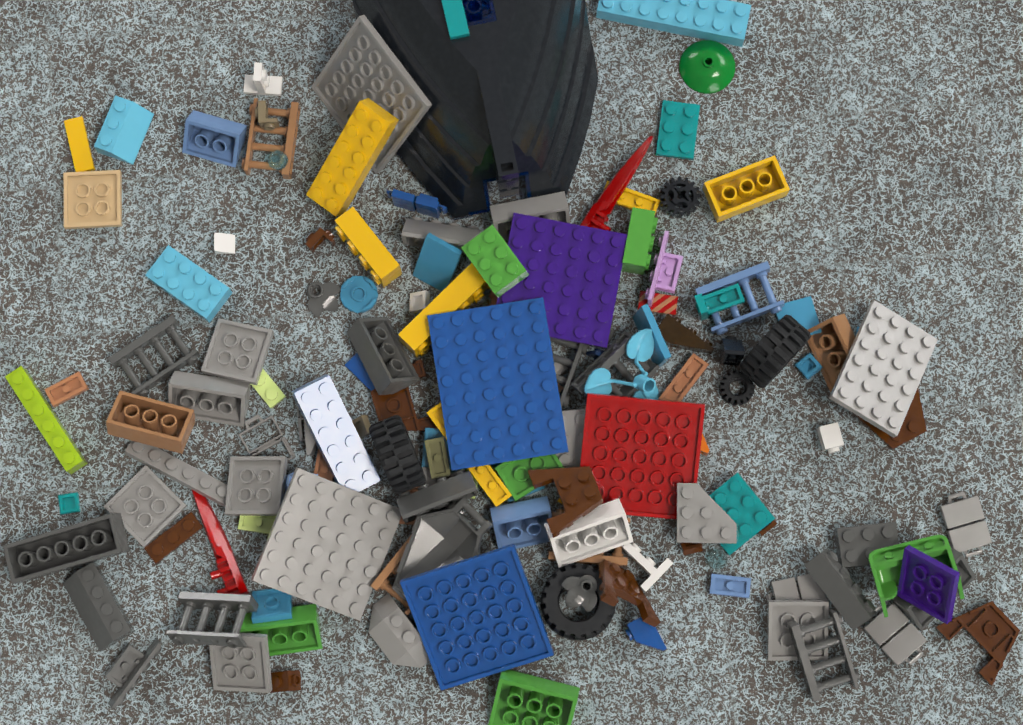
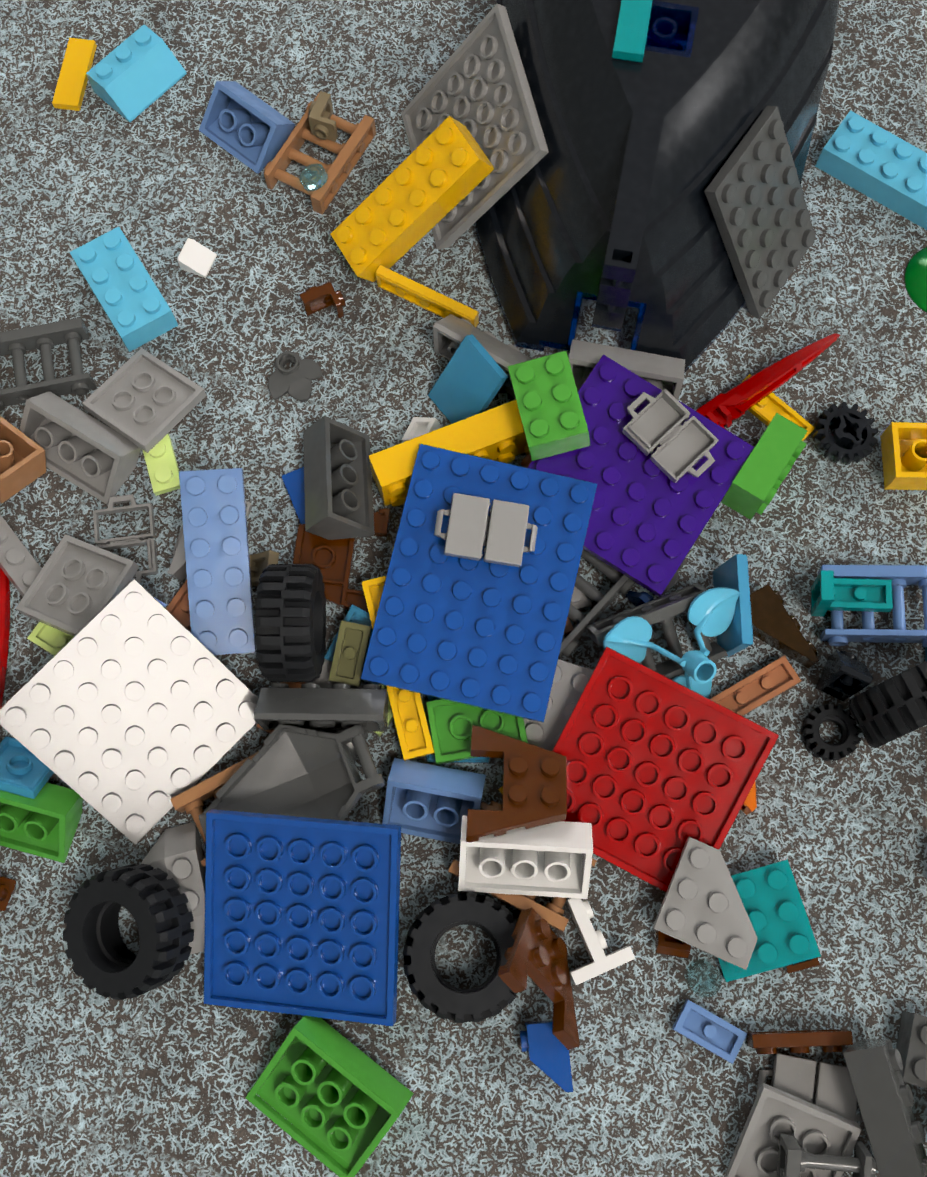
camera: 20 degrees right, 5 degrees down
(92, 199) = (56, 142): tan plate -> none
(262, 84) = (337, 79): white bracket -> none
(361, 299) = (348, 399): dark azure tile -> none
(366, 682) = (95, 935): none -> black tyre
(369, 248) = (381, 331): yellow brick -> none
(386, 212) = (423, 296): none -> yellow tile
(423, 203) = (479, 297): blue piece -> none
(481, 355) = (472, 528): none -> light grey piece
(567, 246) = (661, 425): none -> light grey piece
(576, 81) = (761, 211): none -> dark grey plate
(578, 594) = (469, 947): dark grey plate -> none
(661, 303) = (761, 566): tile -> none
(666, 271) = (787, 526): lavender bracket -> none
(678, 130) = (874, 346): teal plate -> none
(780, 570) = (799, 1040): none -> reddish brown plate

